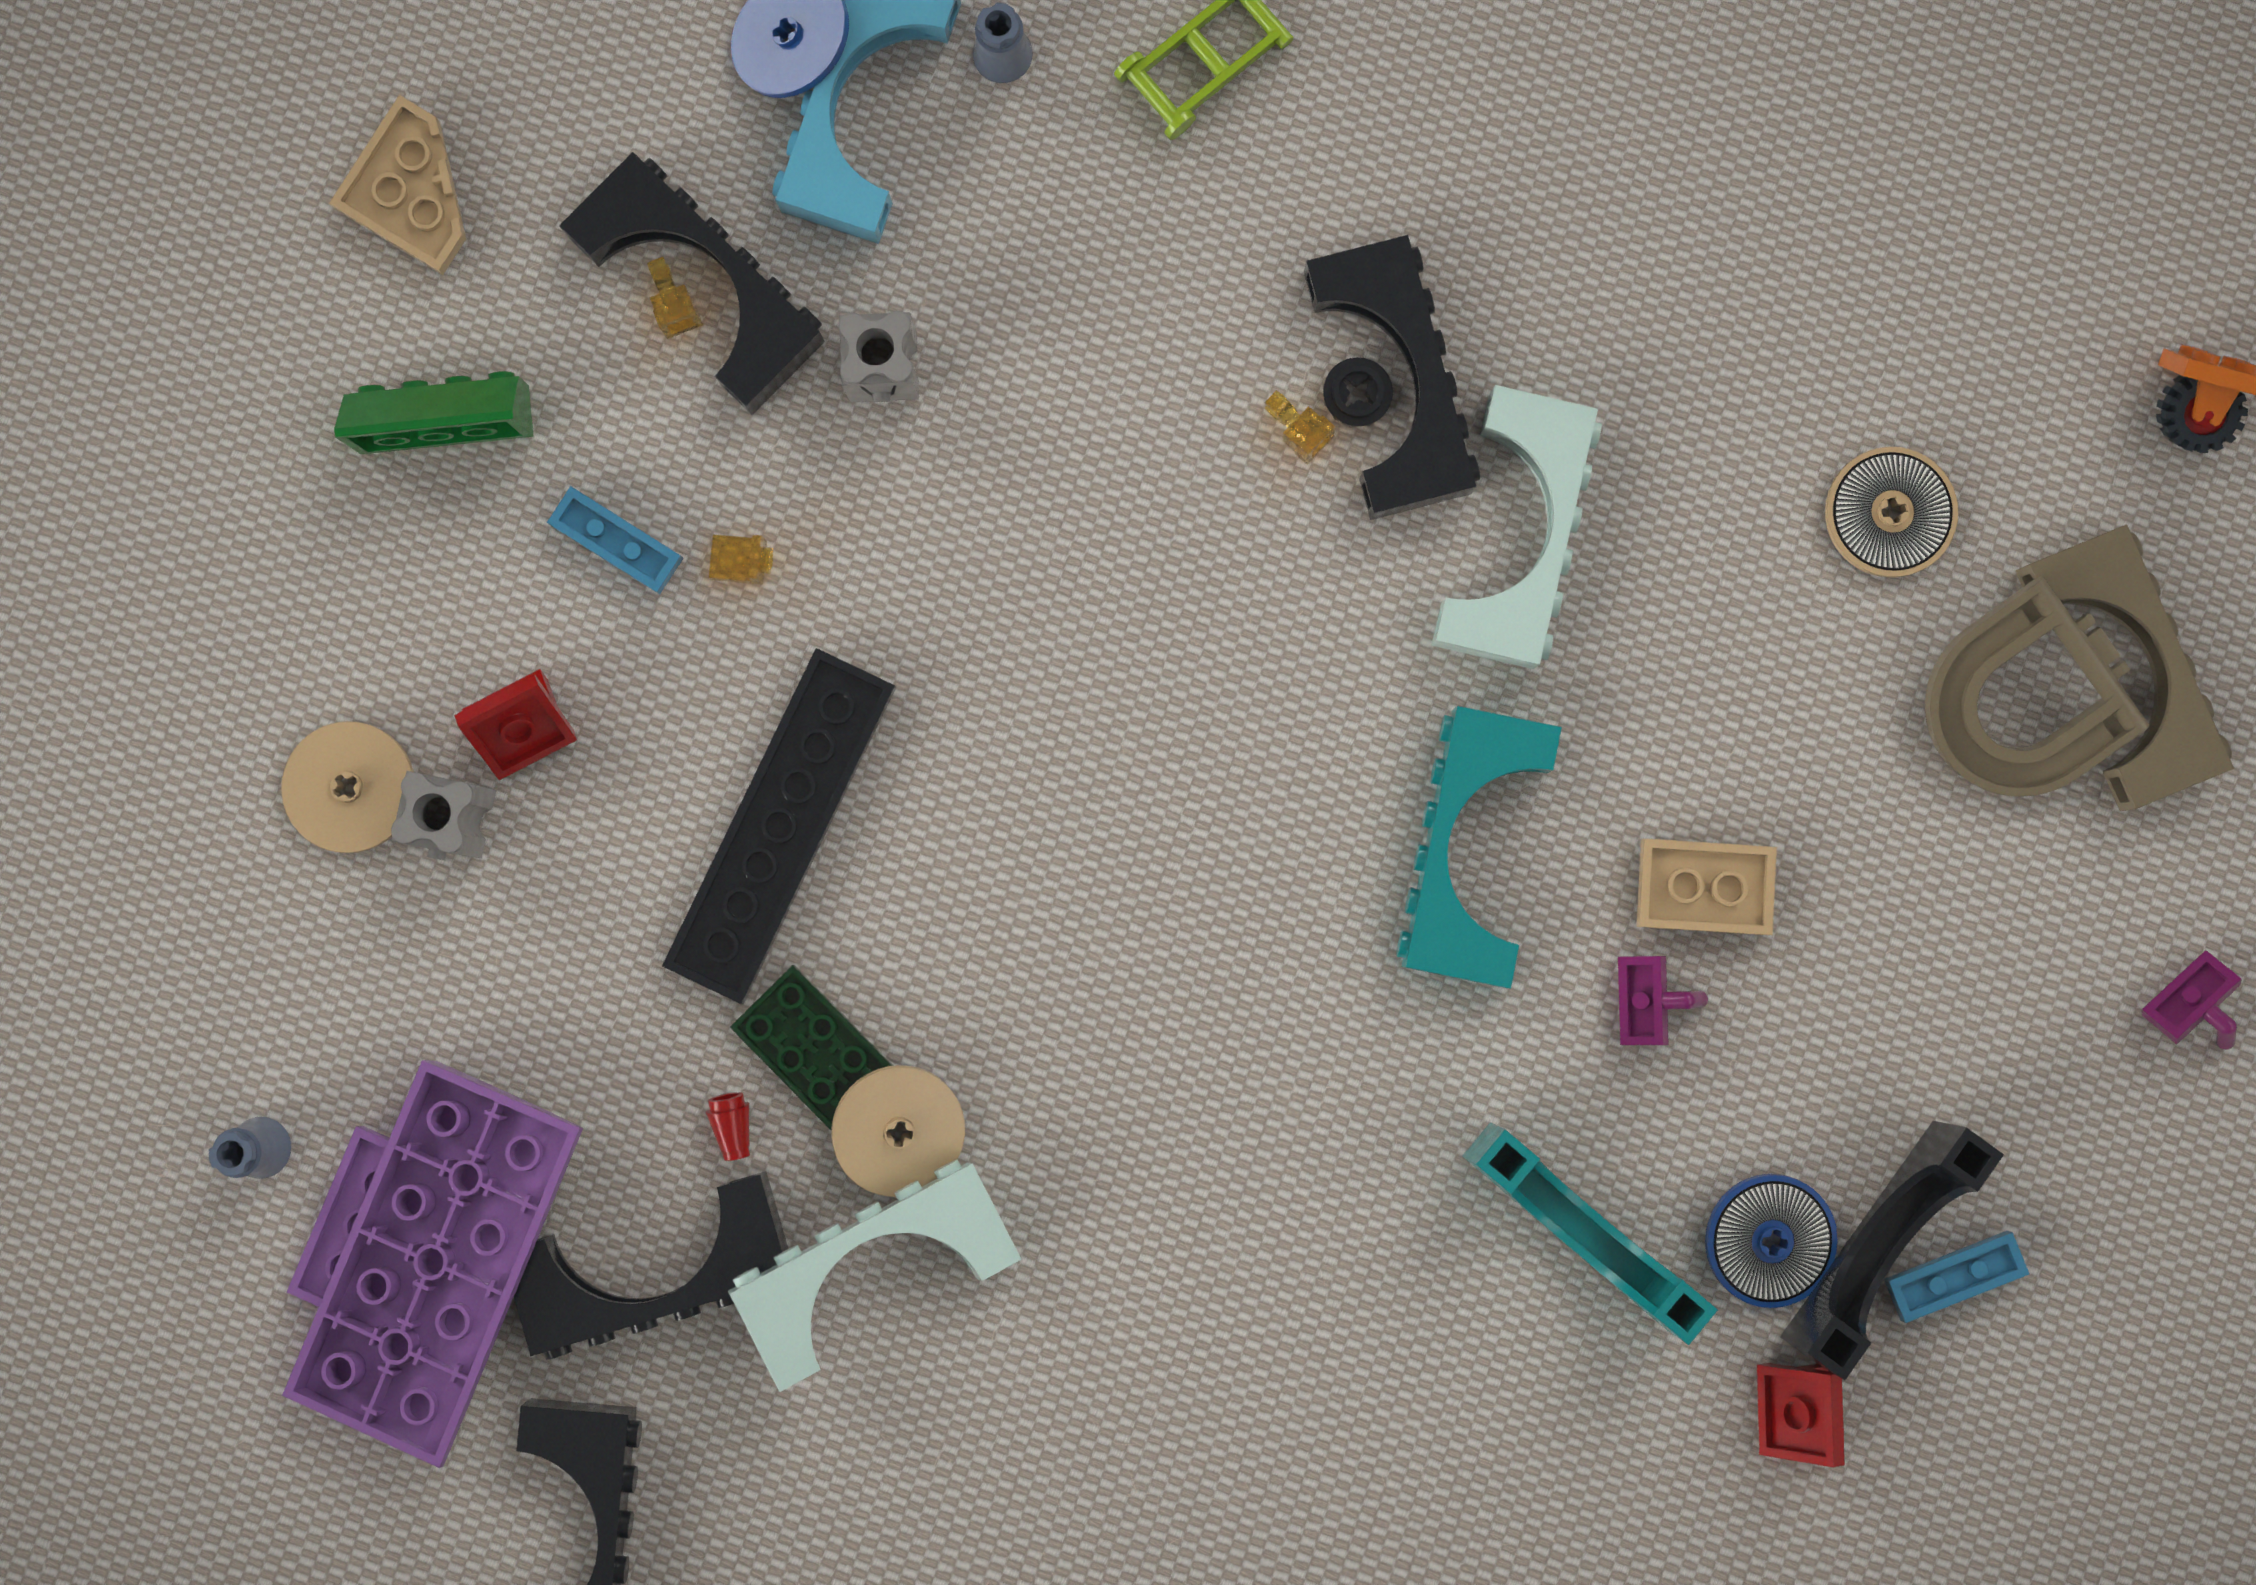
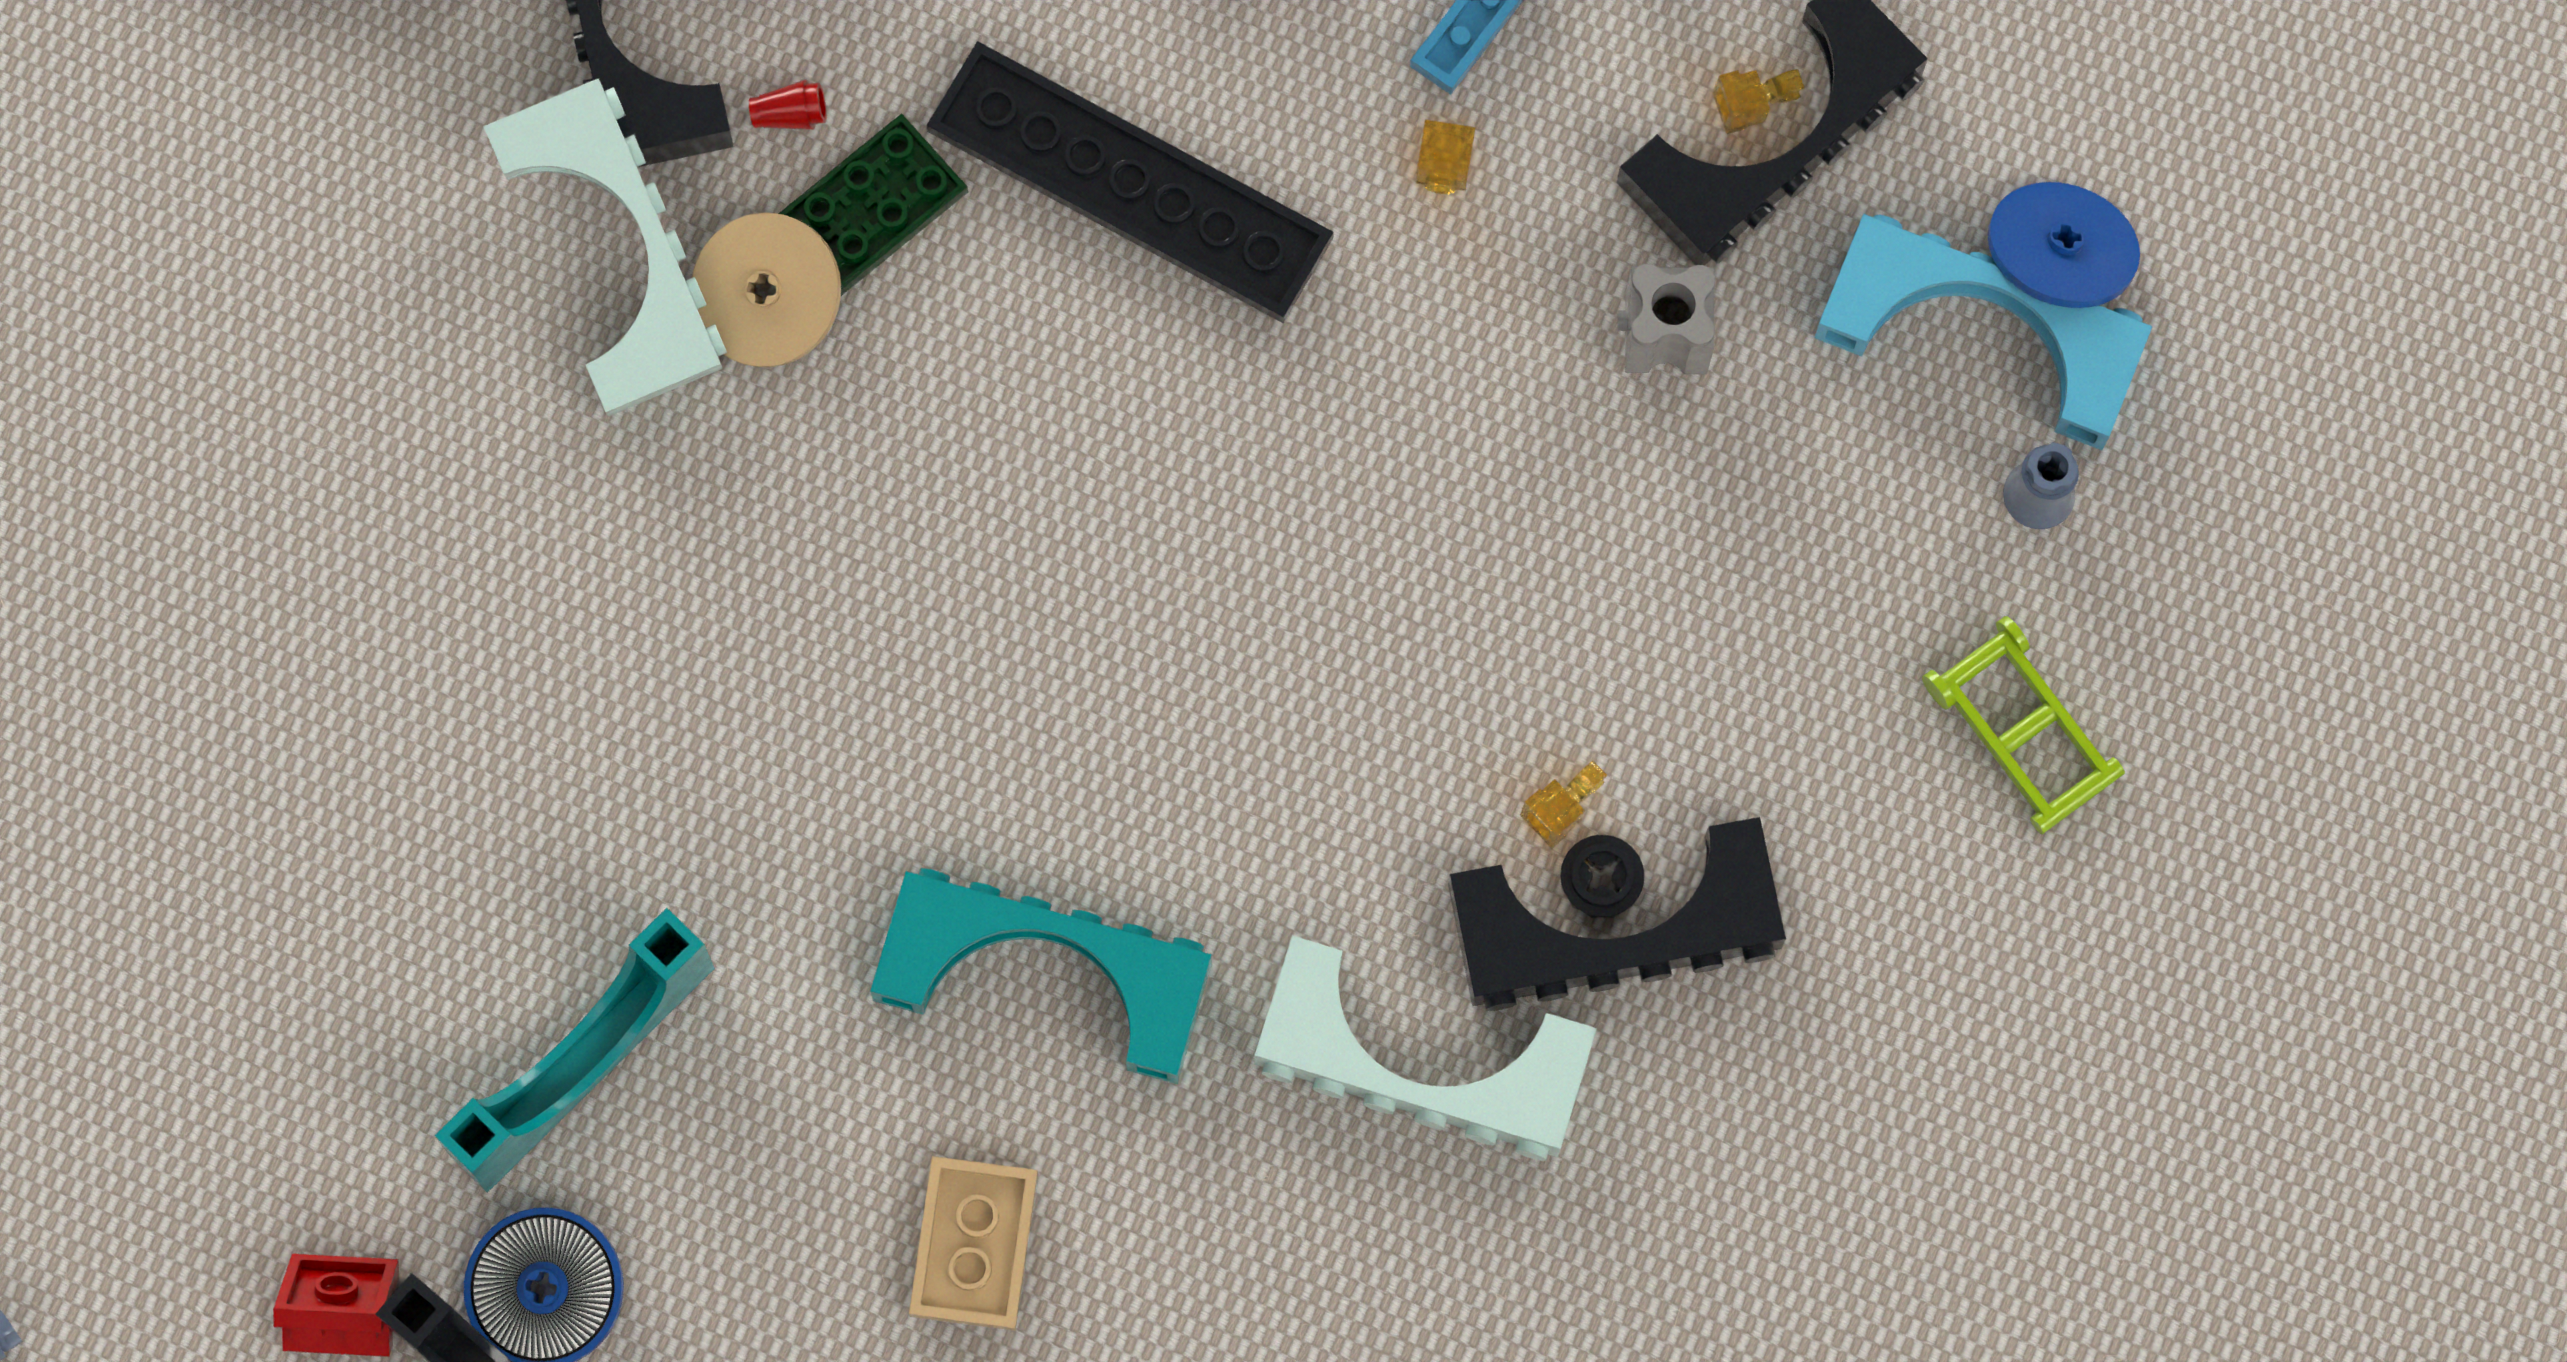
camera: 90 degrees right, 10 degrees down
(1646, 1000) = (842, 1158): magenta plate -> none

